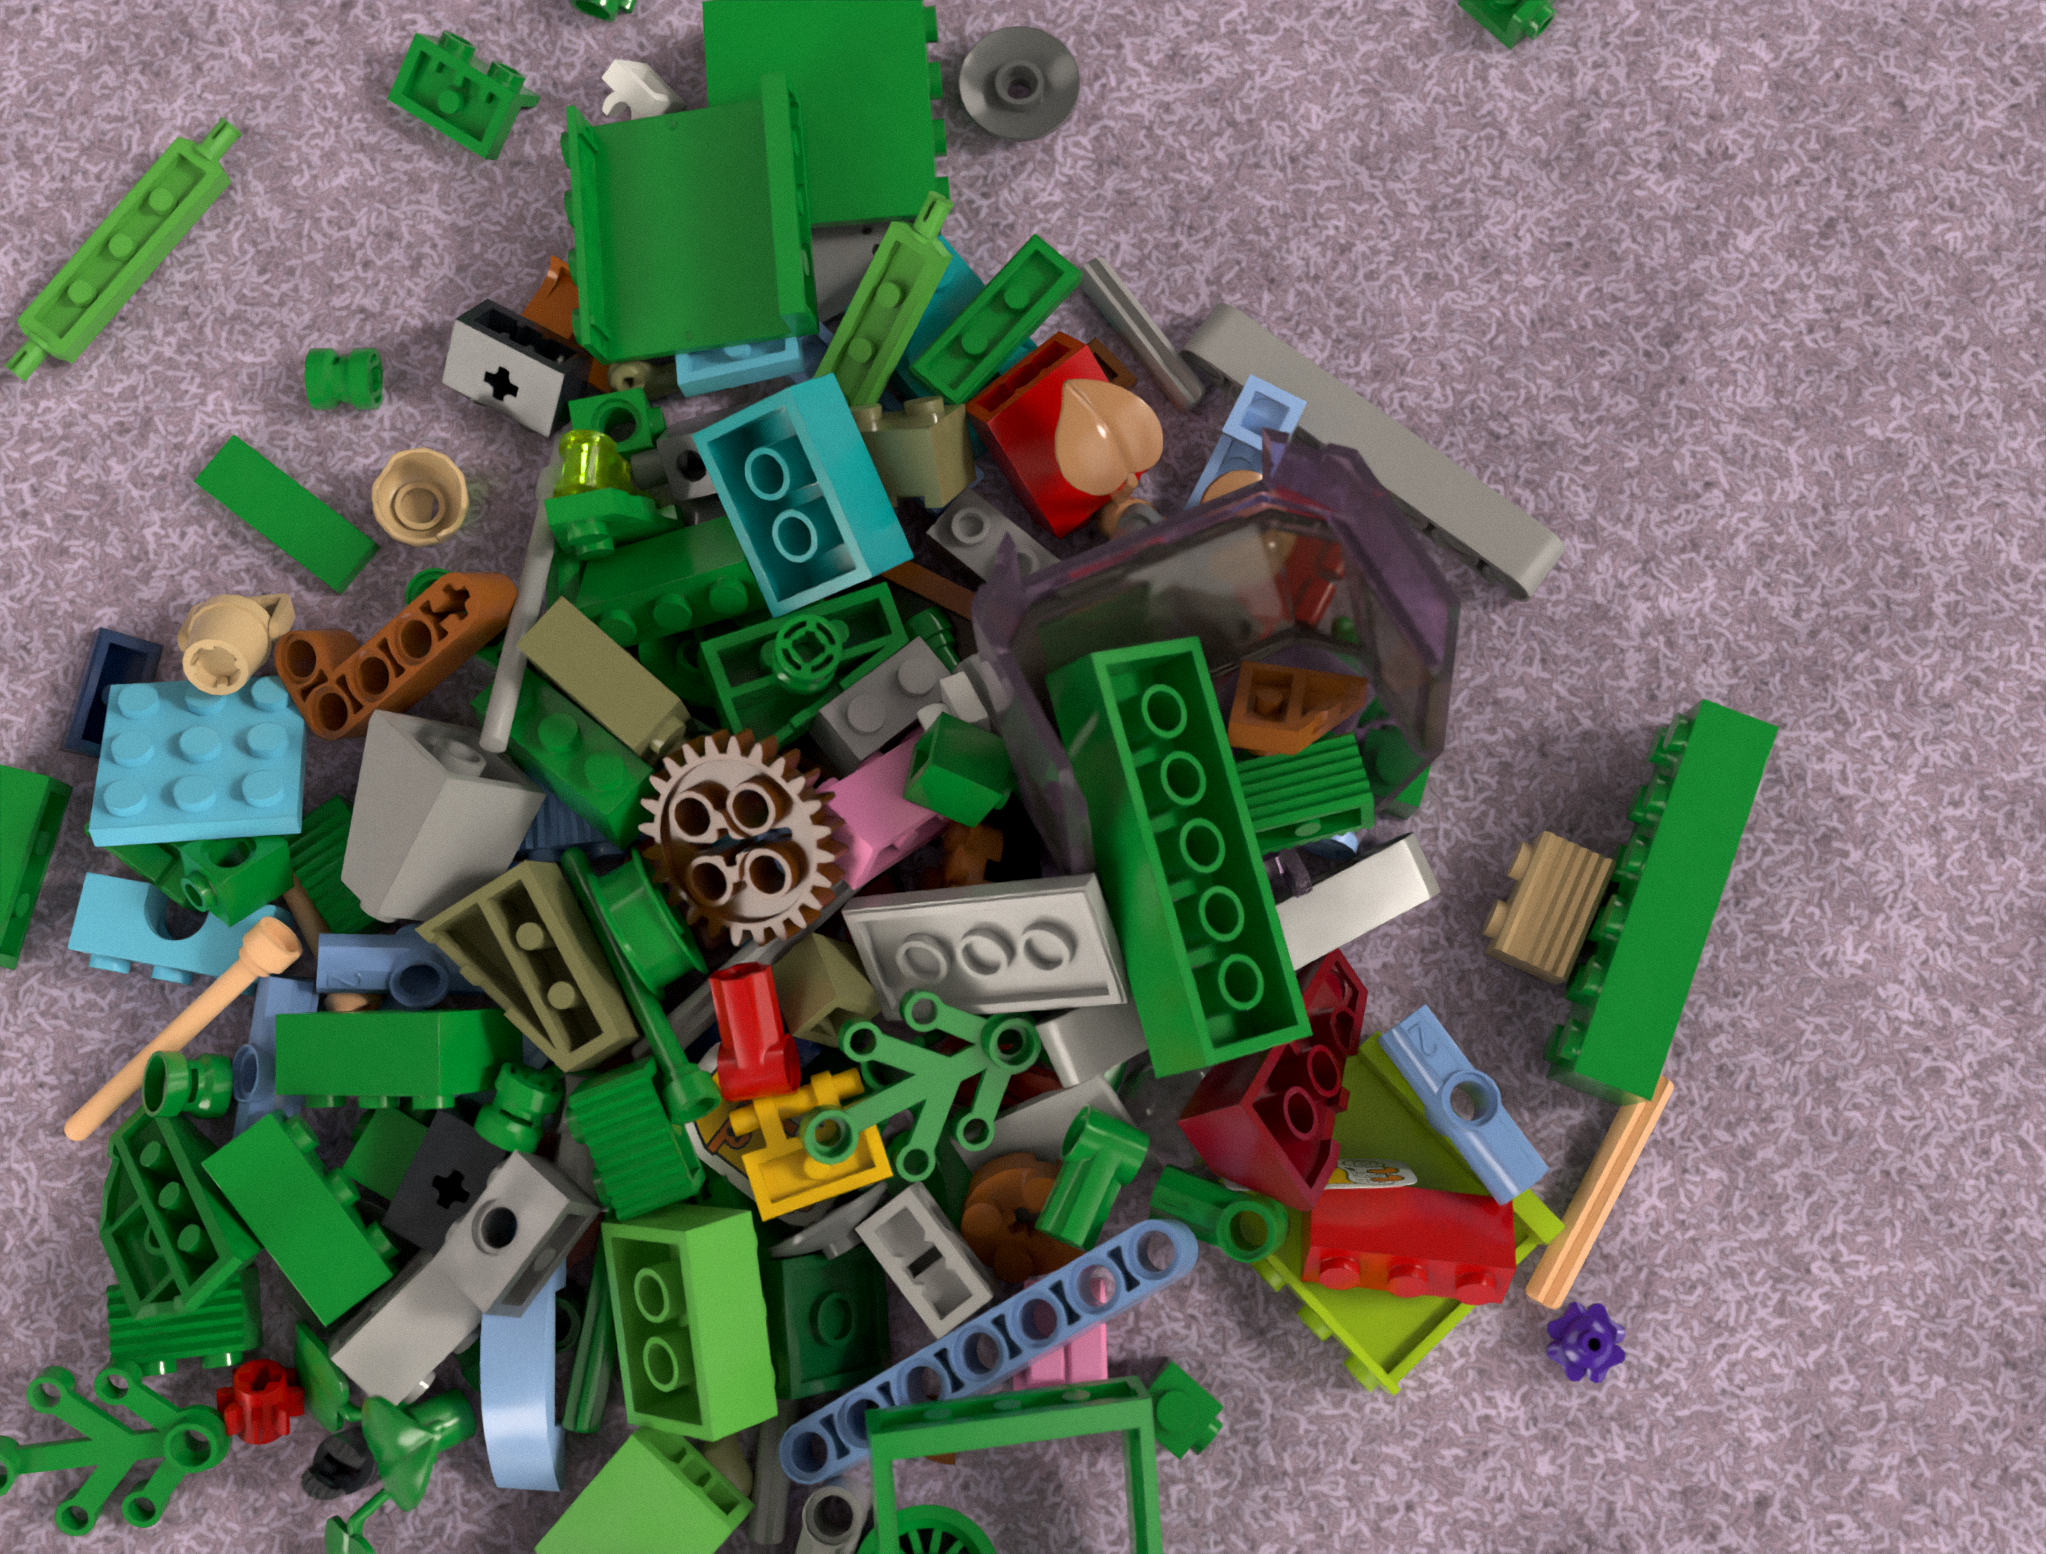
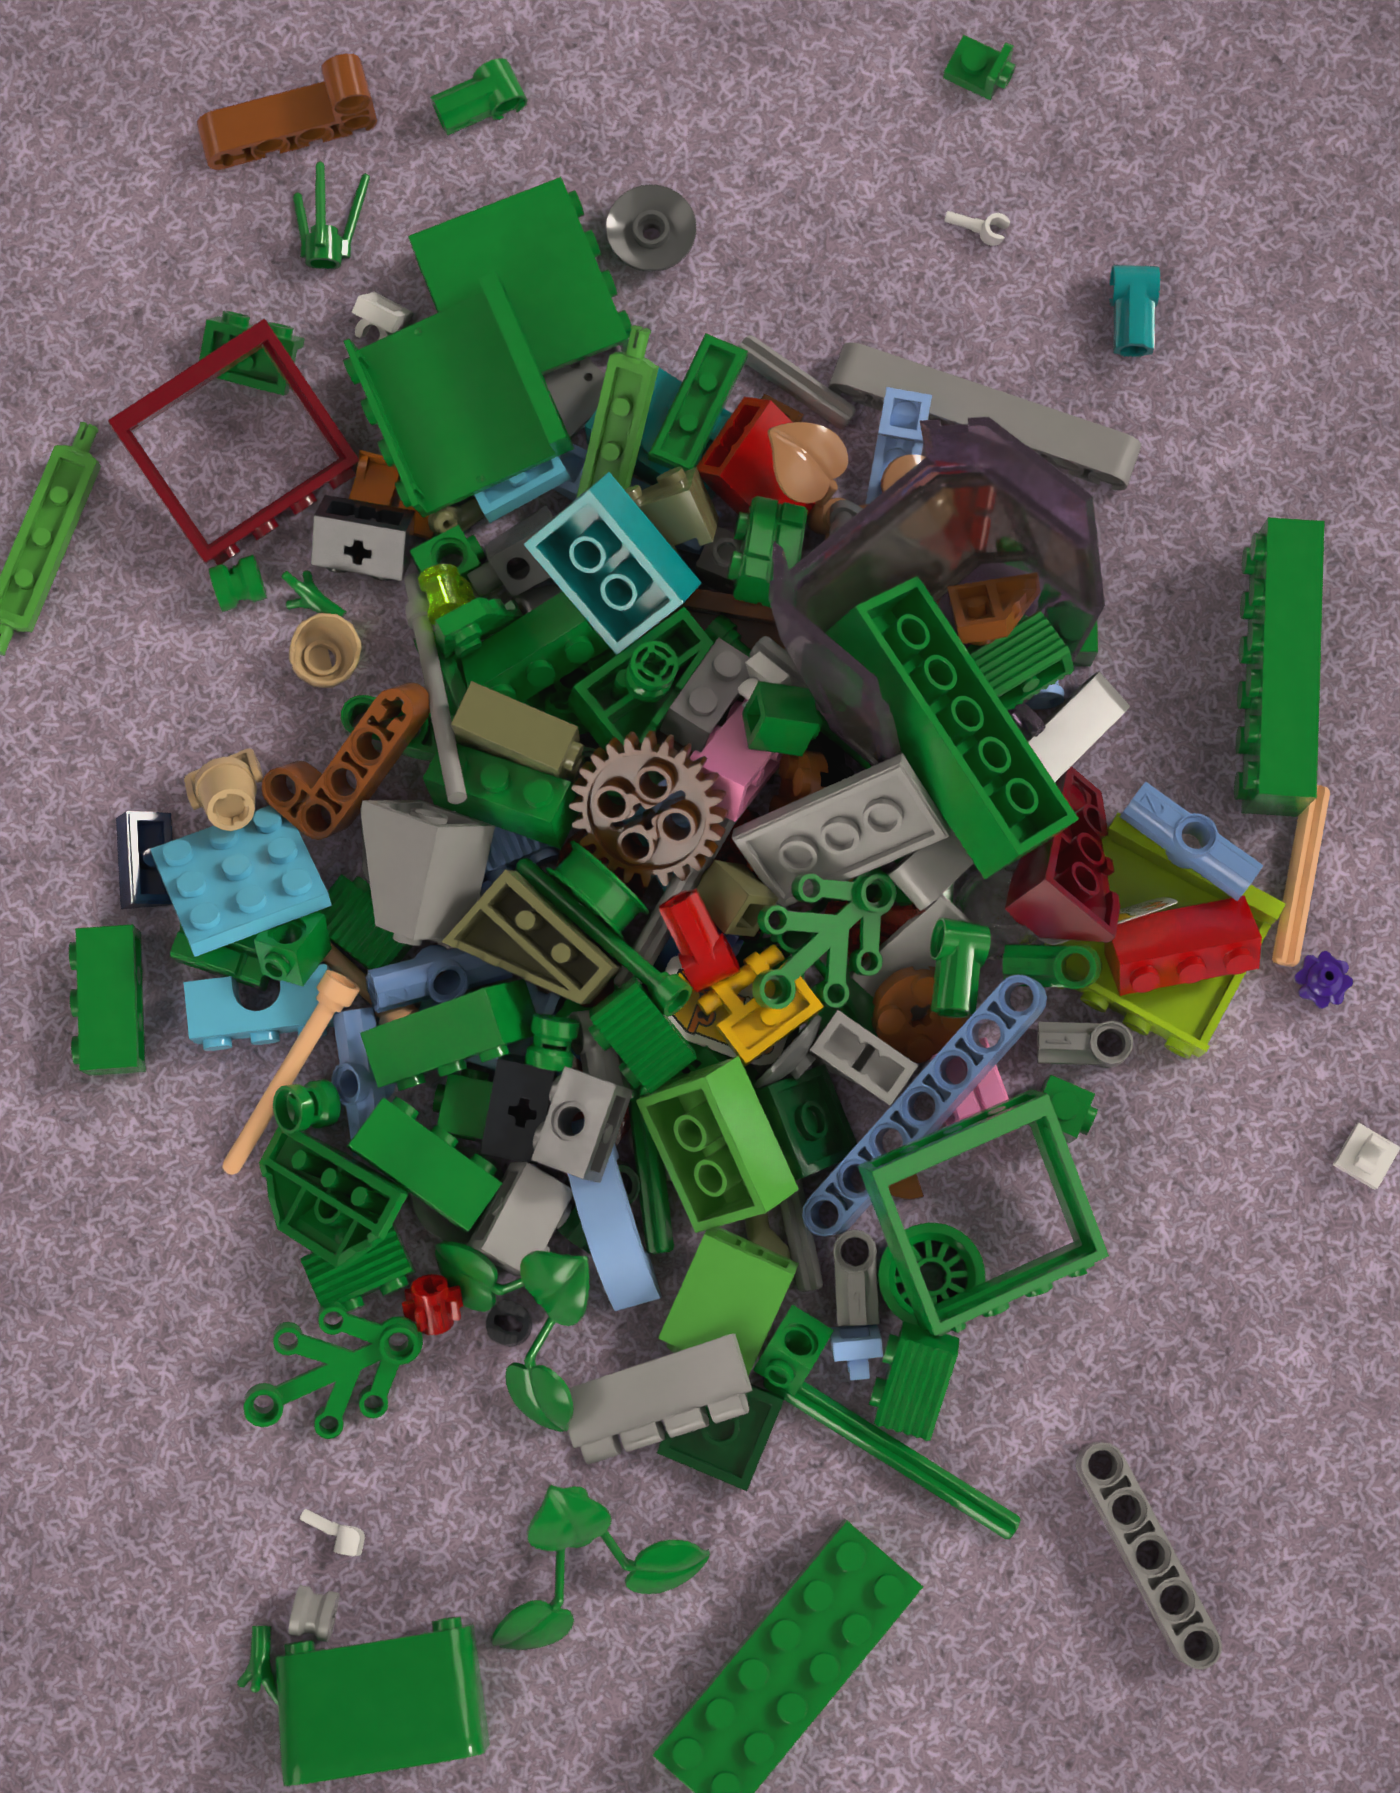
camera: 20 degrees left, 0 degrees up
(287, 514) = (227, 692): green tile -> none
(361, 102) = (196, 377): none -> dark red window
(433, 424) = (310, 595): none -> green bar
(1037, 517) = (756, 530): none -> green brick
(1225, 1324) = (1077, 1043): none -> light grey piece
(1445, 205) = (981, 226): none -> white hand
(1548, 907) = (1206, 694): tan brick -> none
(1613, 365) = (1134, 308): none -> teal piece

